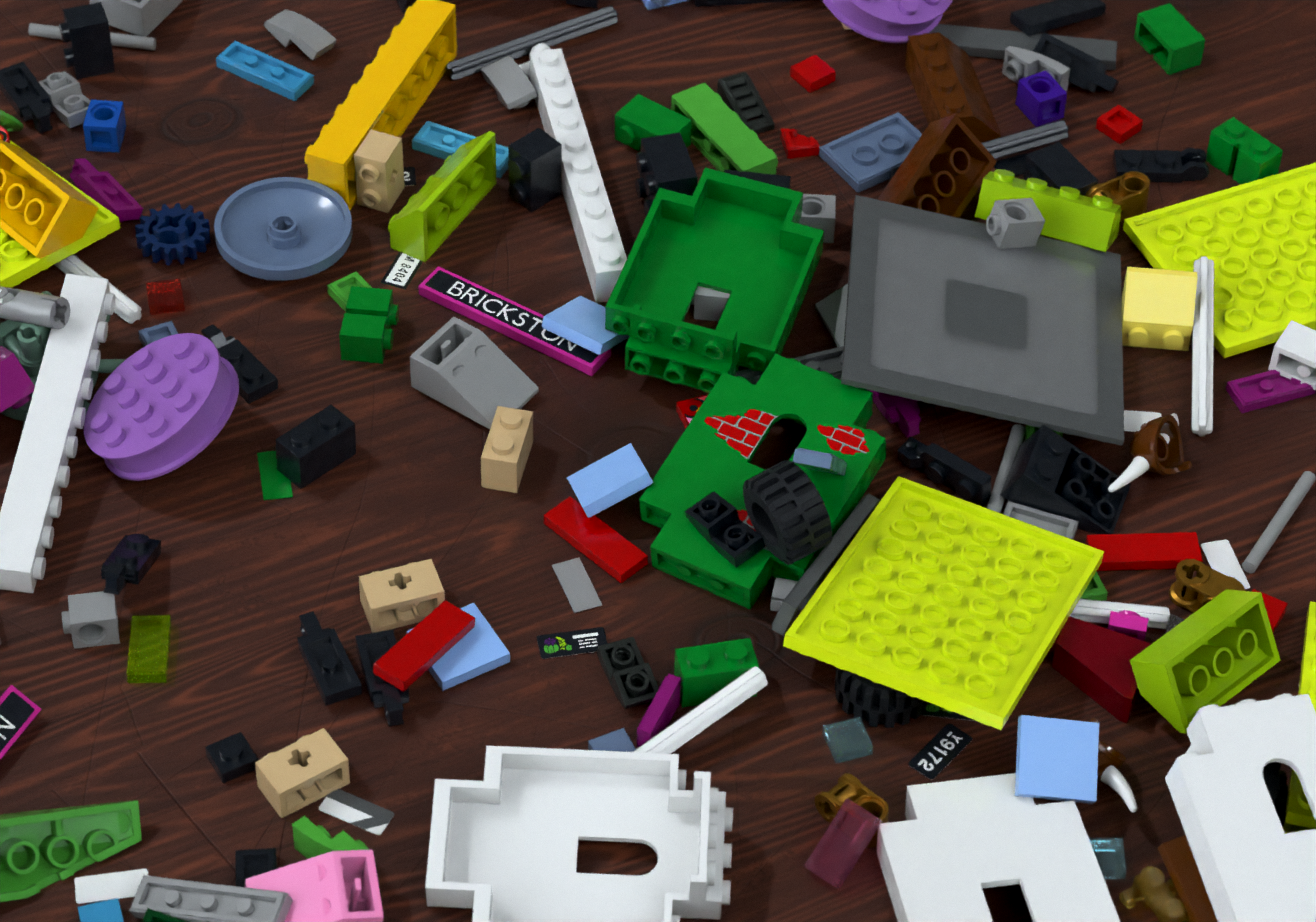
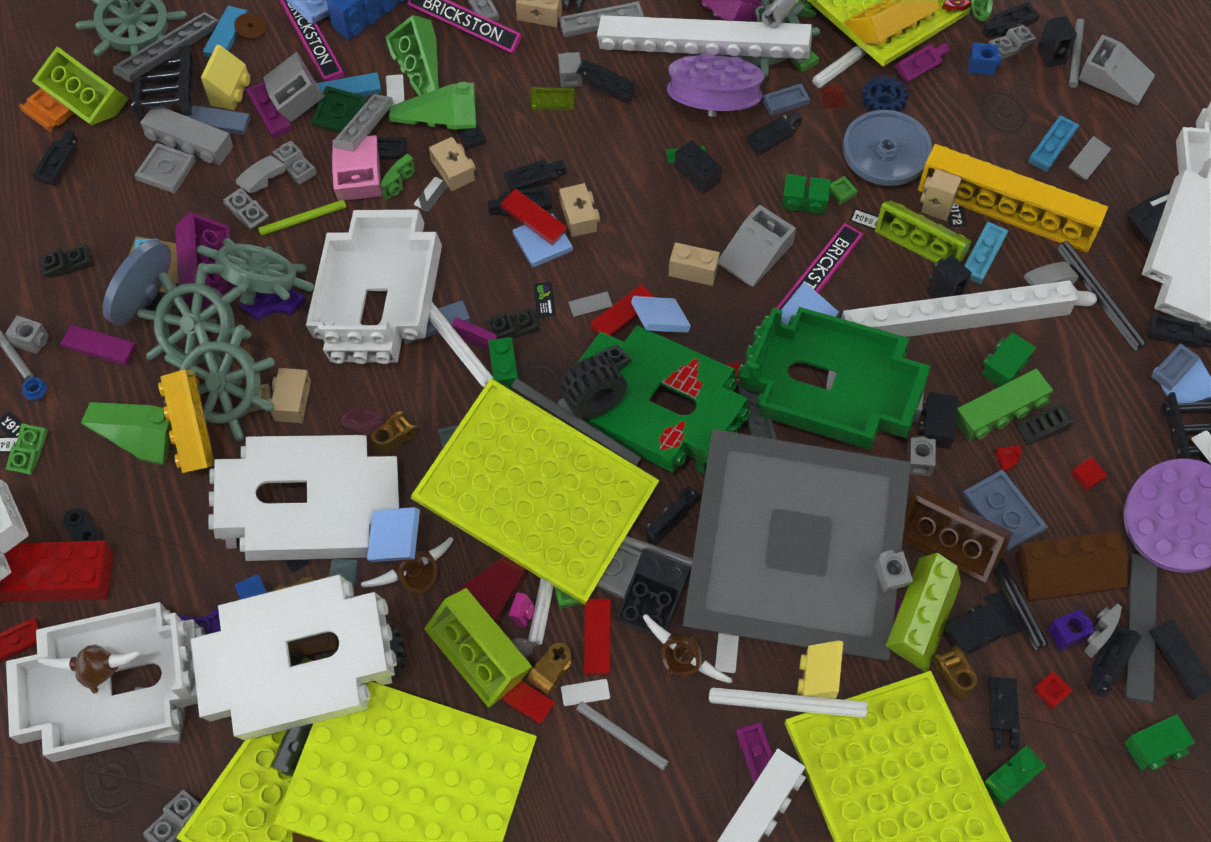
camera: 95 degrees right, 15 degrees up
(178, 789) = (449, 105): none -> bright green wedge
(664, 165) = (948, 357): black brick -> none
(819, 461) = (626, 403): sand blue tile -> none

